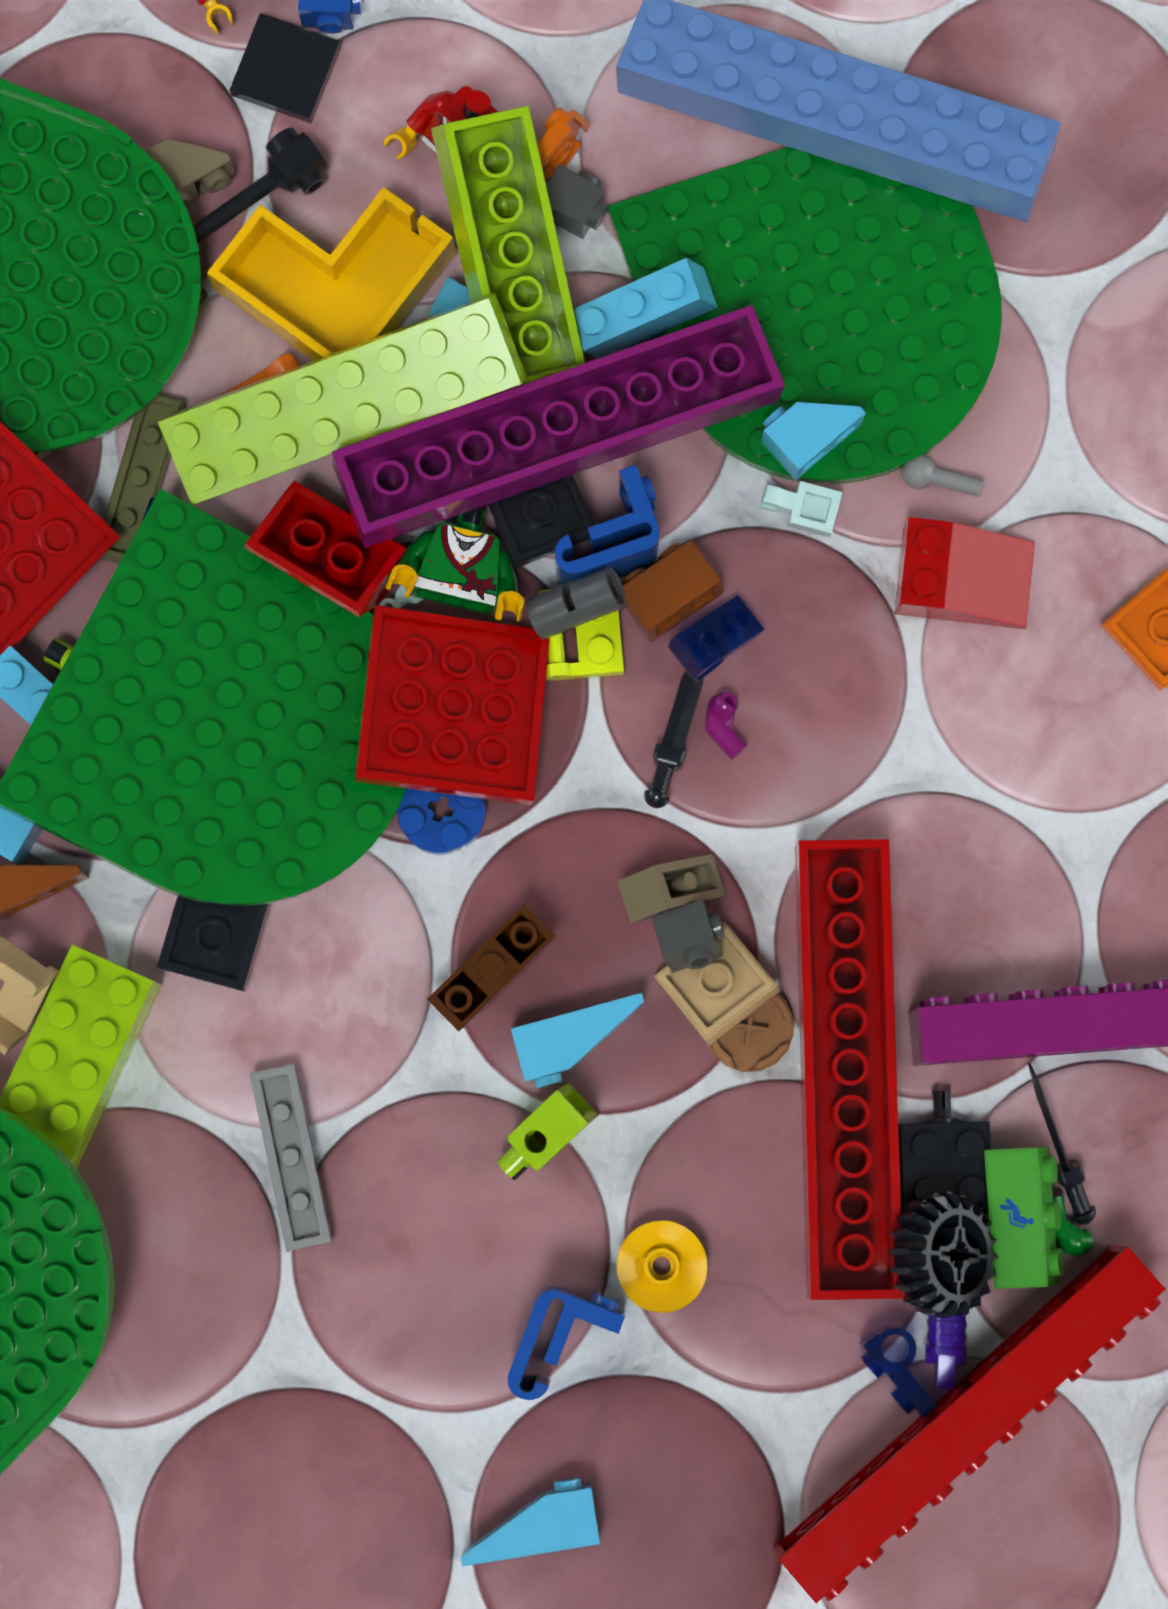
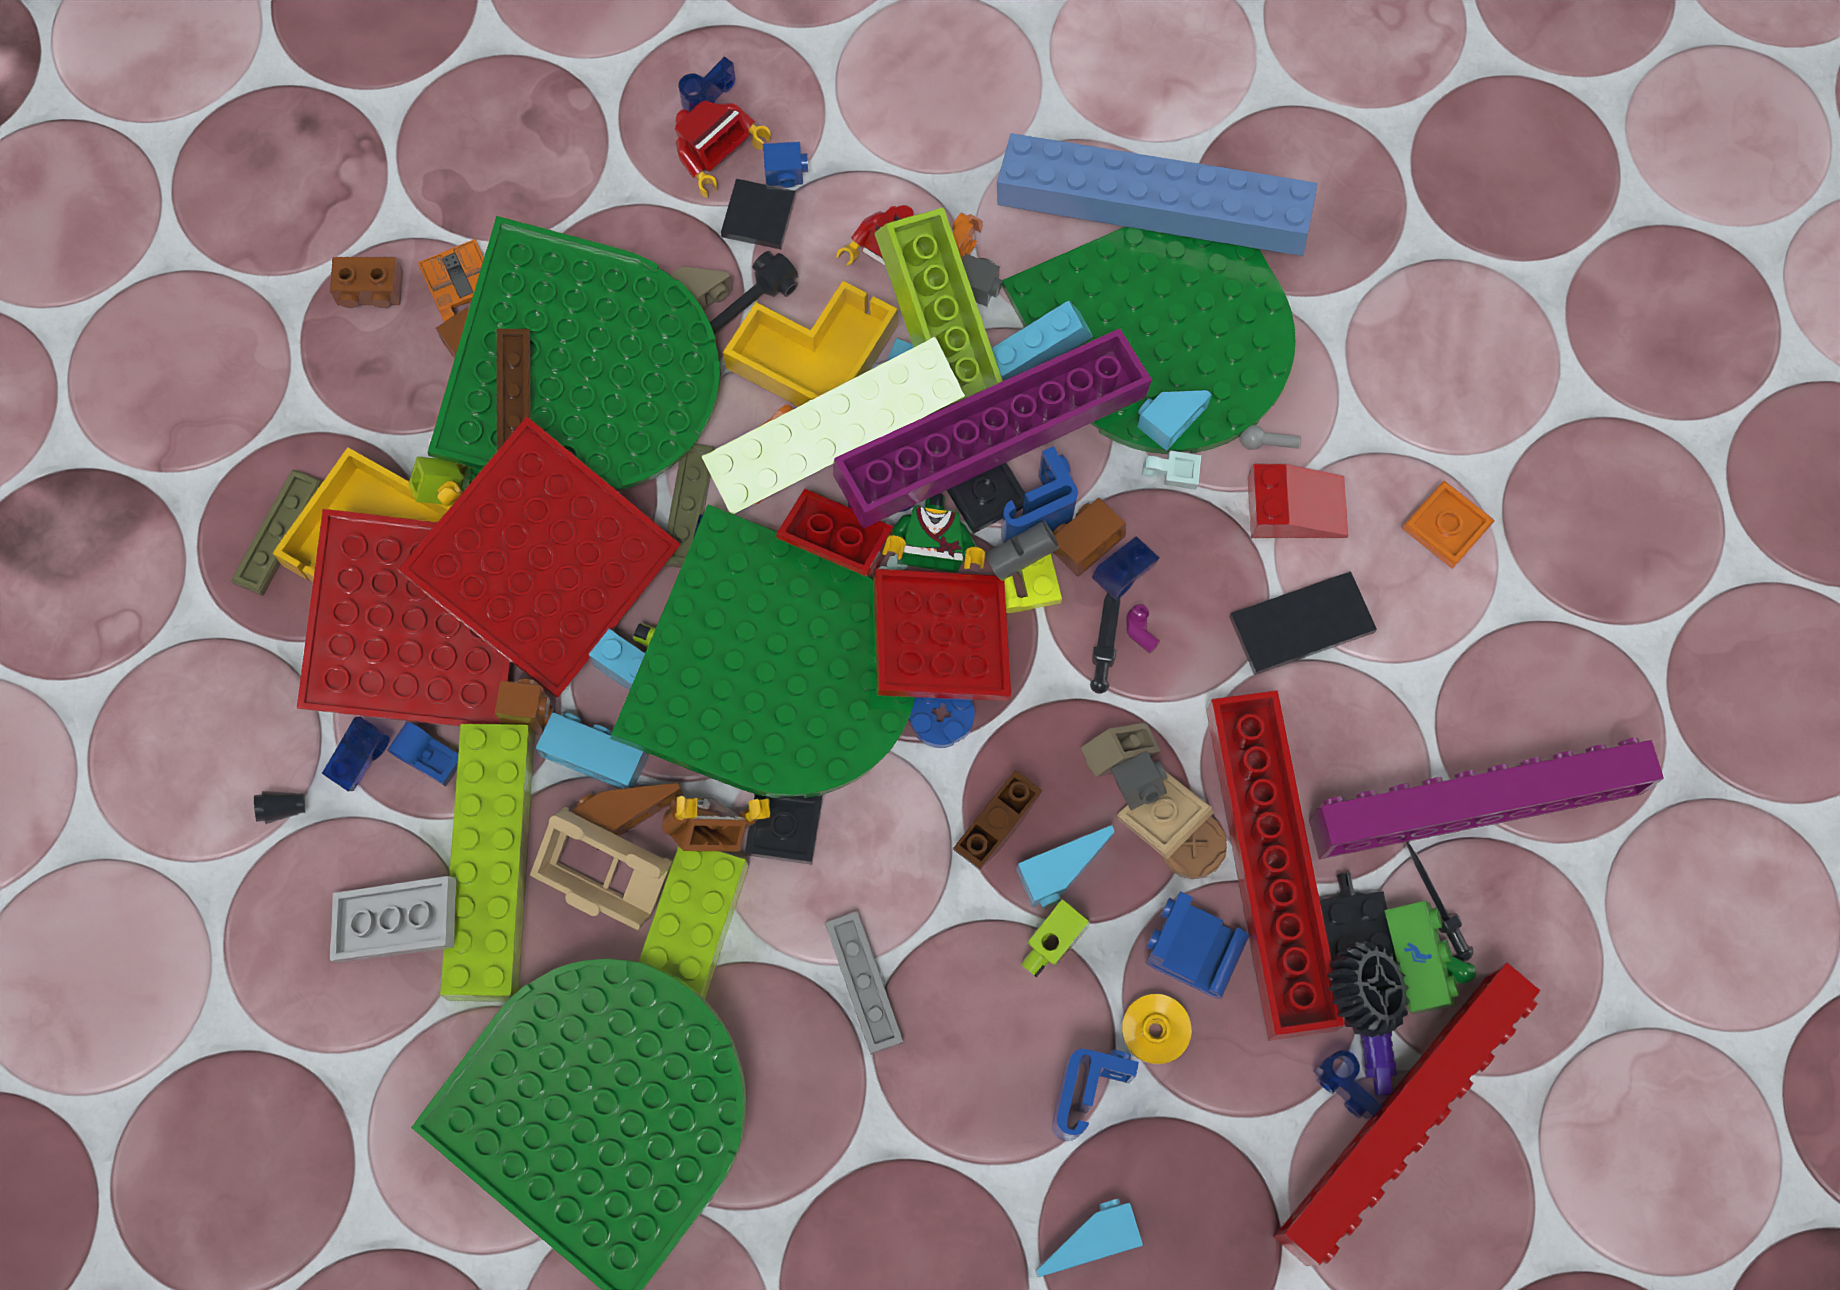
camera: 10 degrees left, 10 degrees down
(111, 927) = (709, 825): none -> dark orange torso
(730, 1166) = (1195, 947): none -> blue piece
(944, 742) = (1302, 623): none -> black tile

